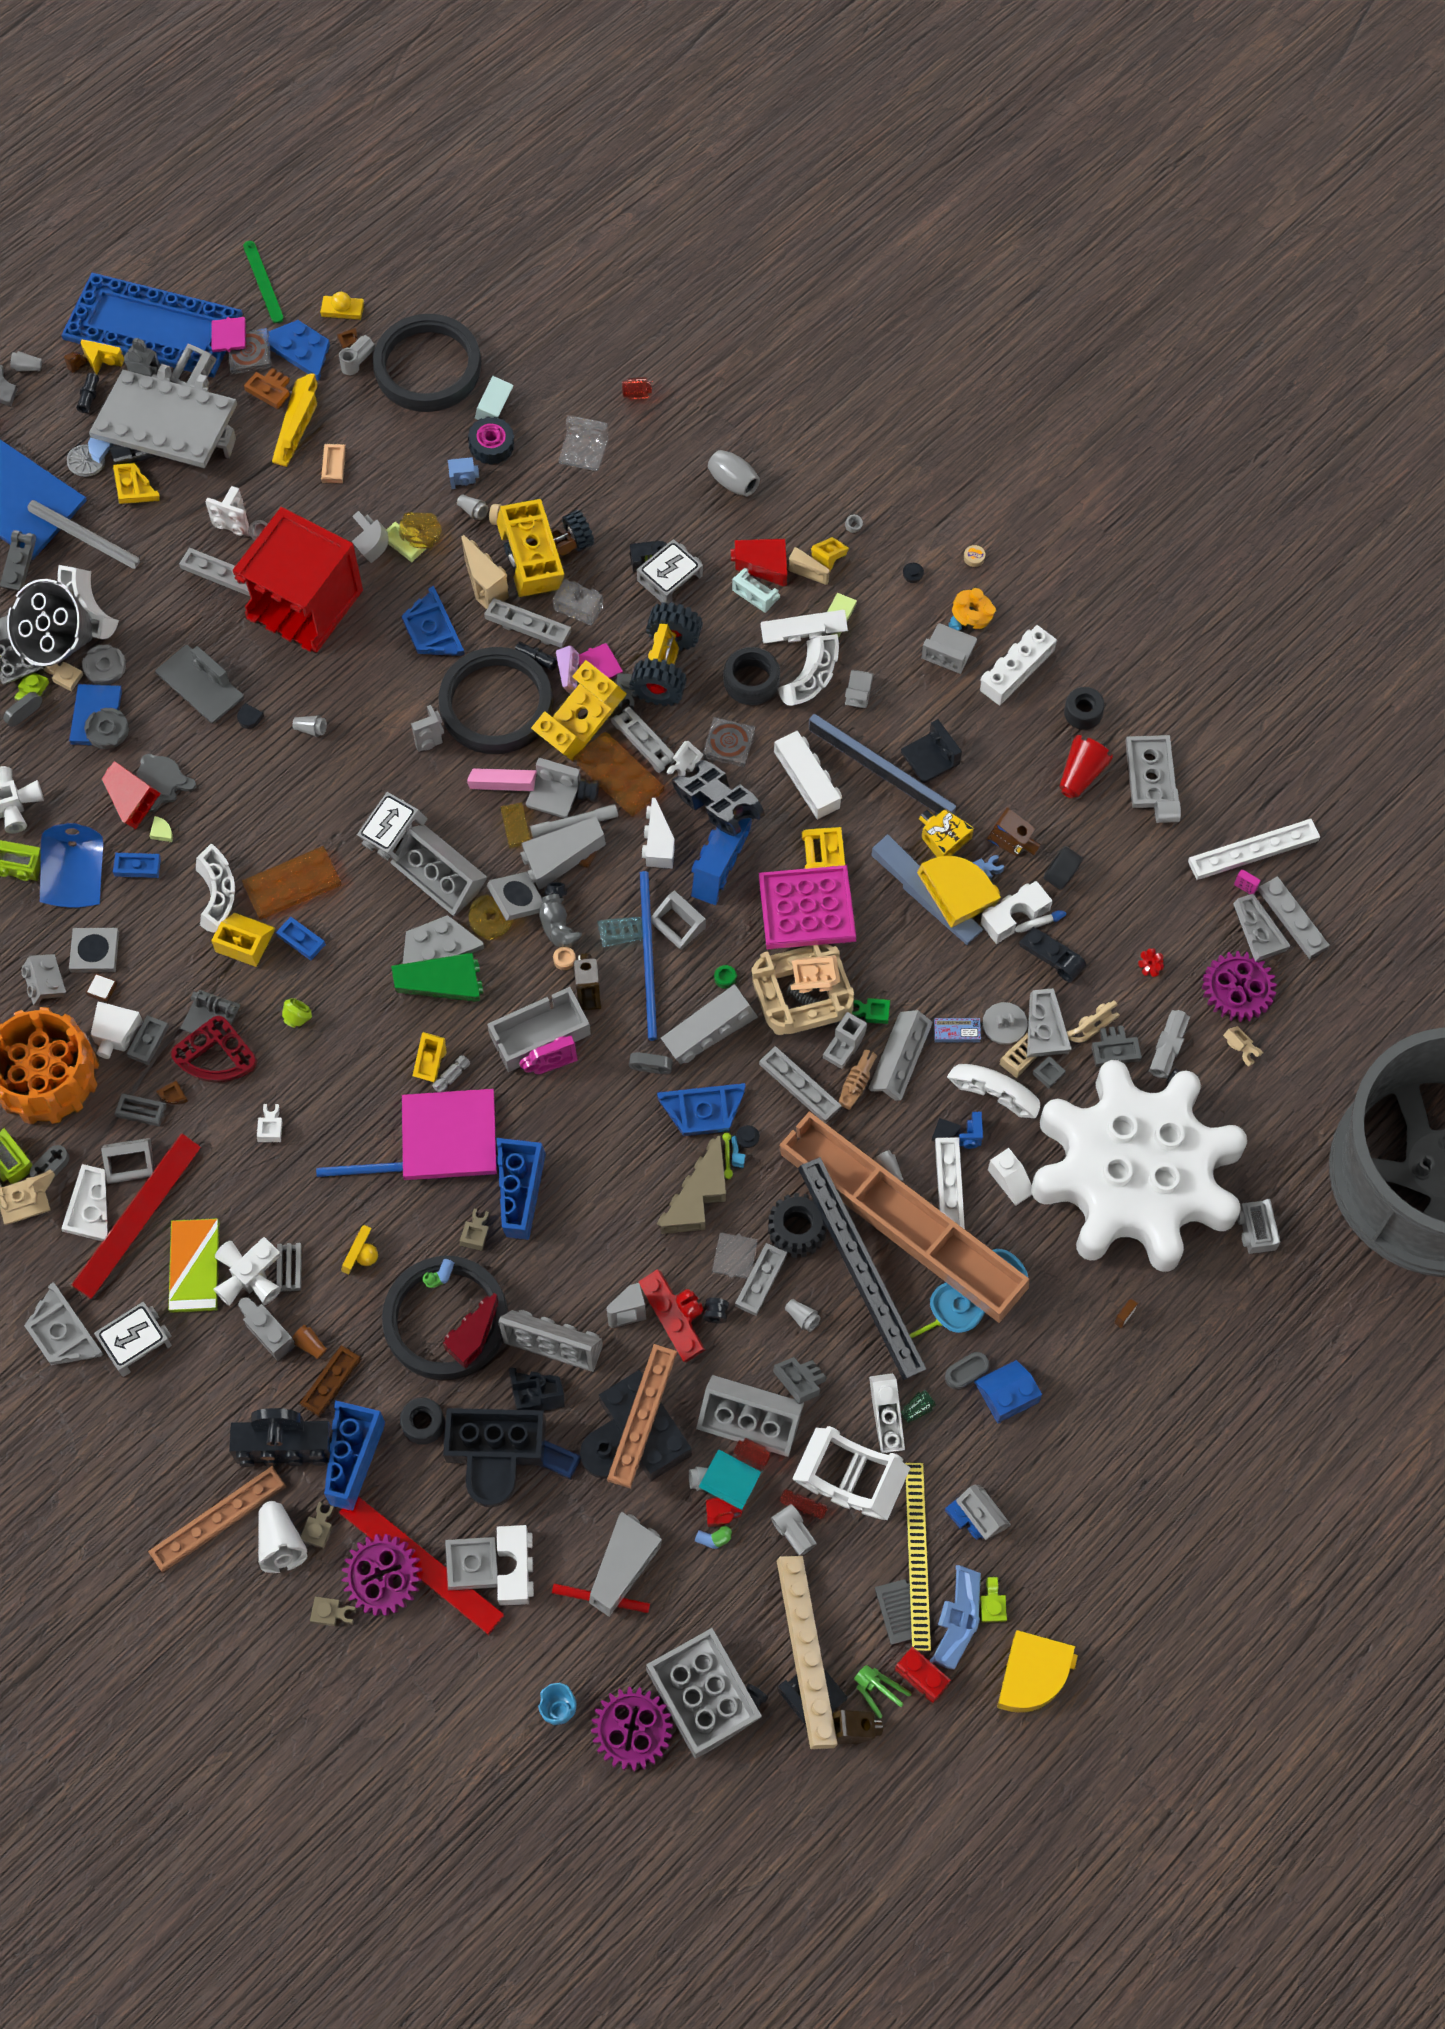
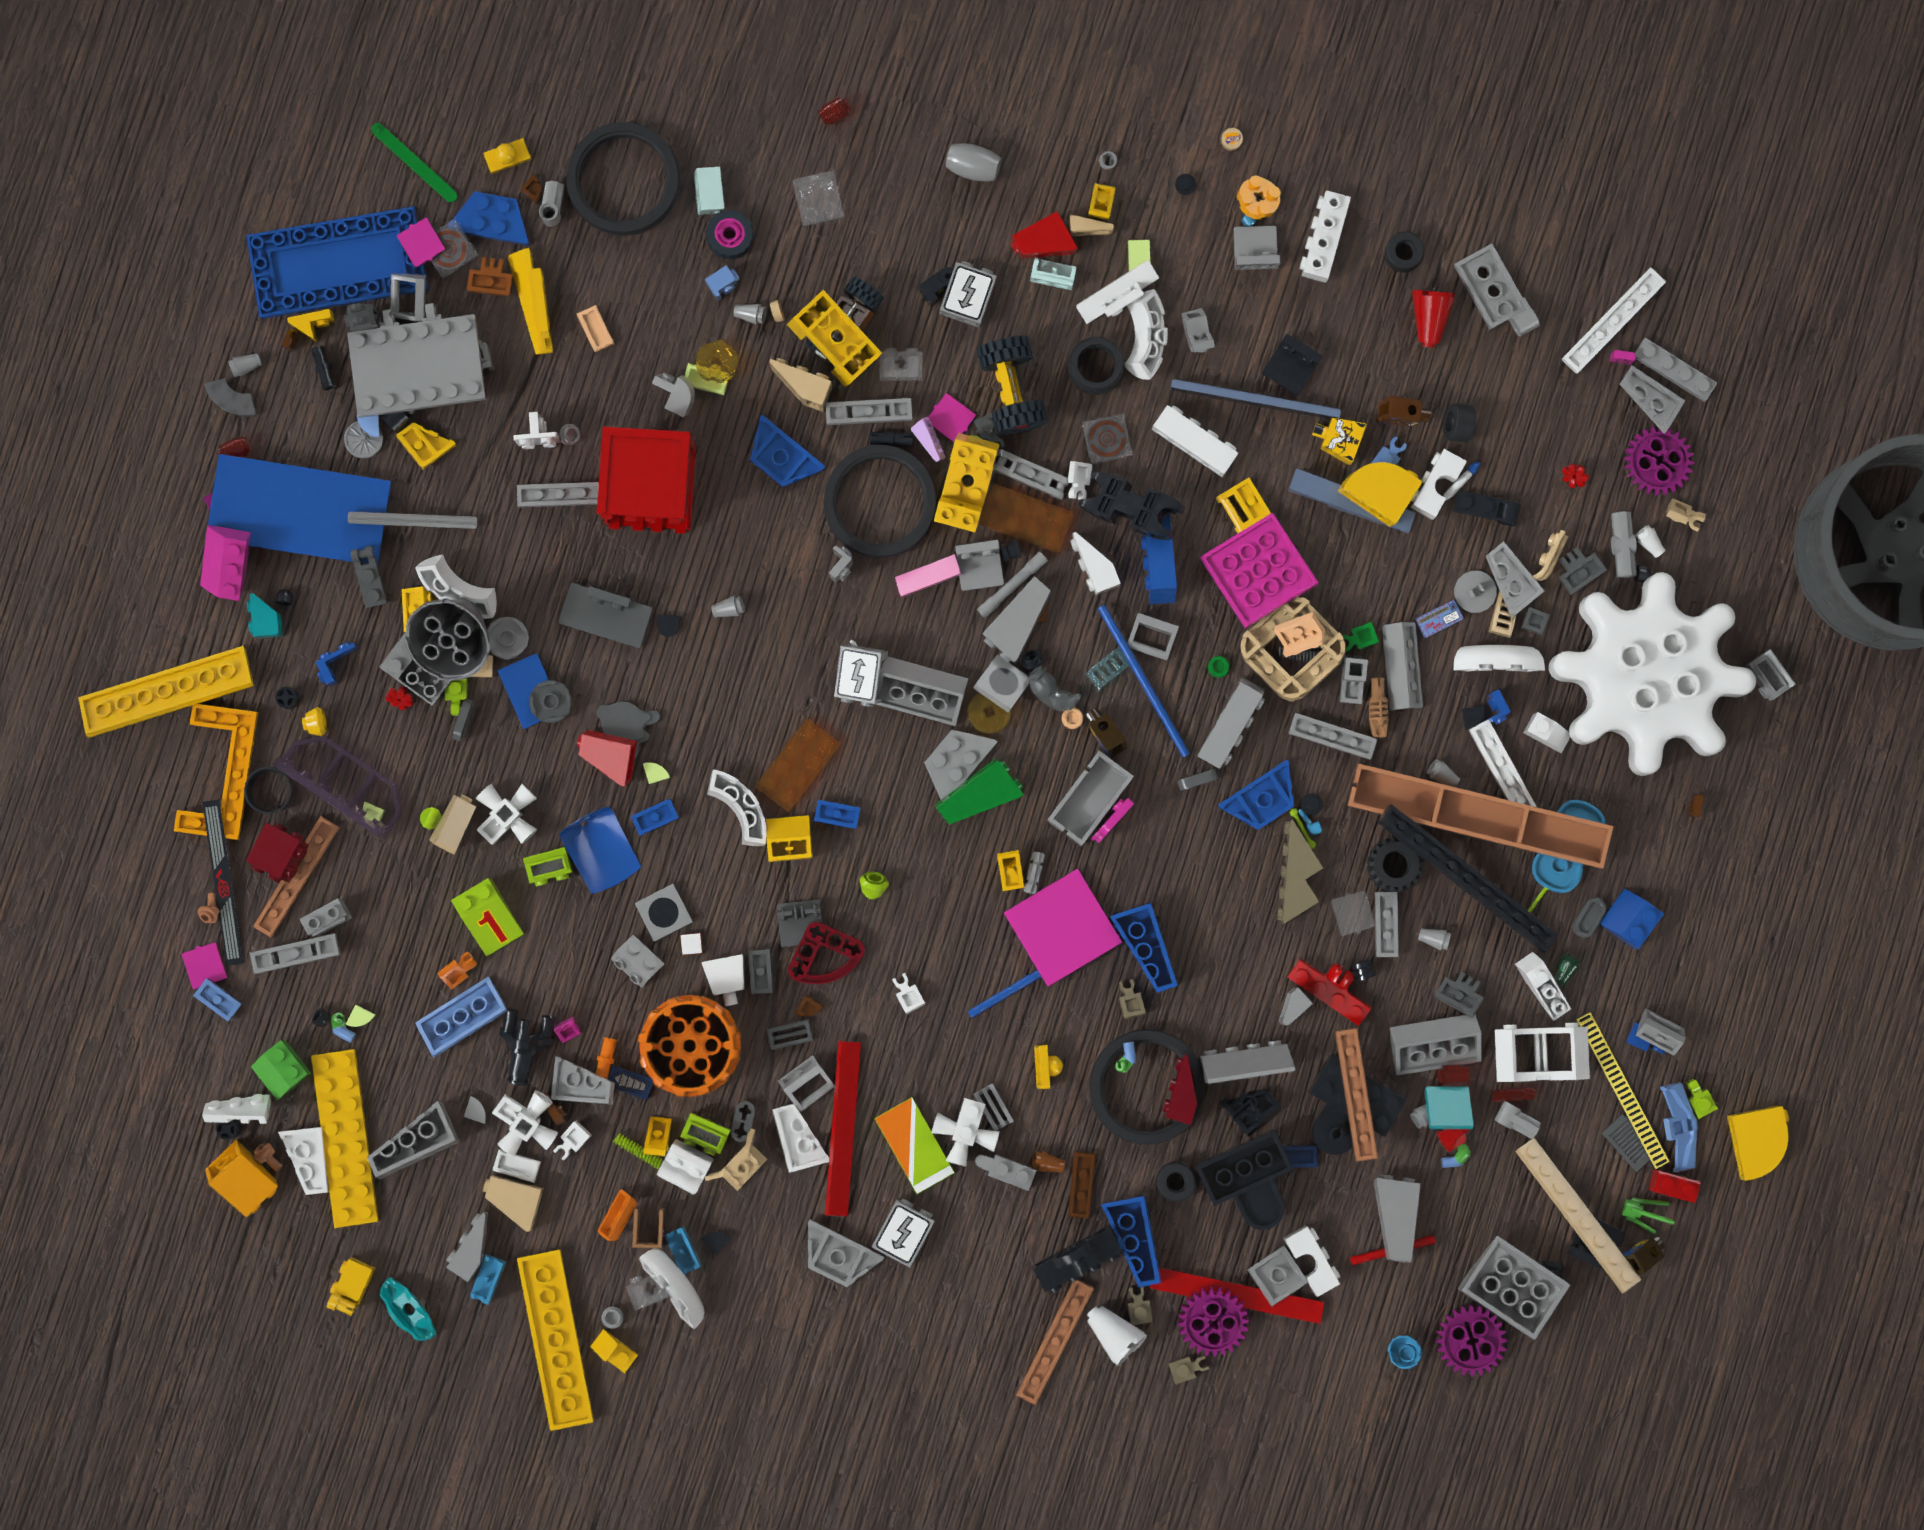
camera: 30 degrees left, 20 degrees up
(515, 824) = (962, 613): clear yellow tile -> none
(1197, 1052) = (1649, 540): none -> white cone

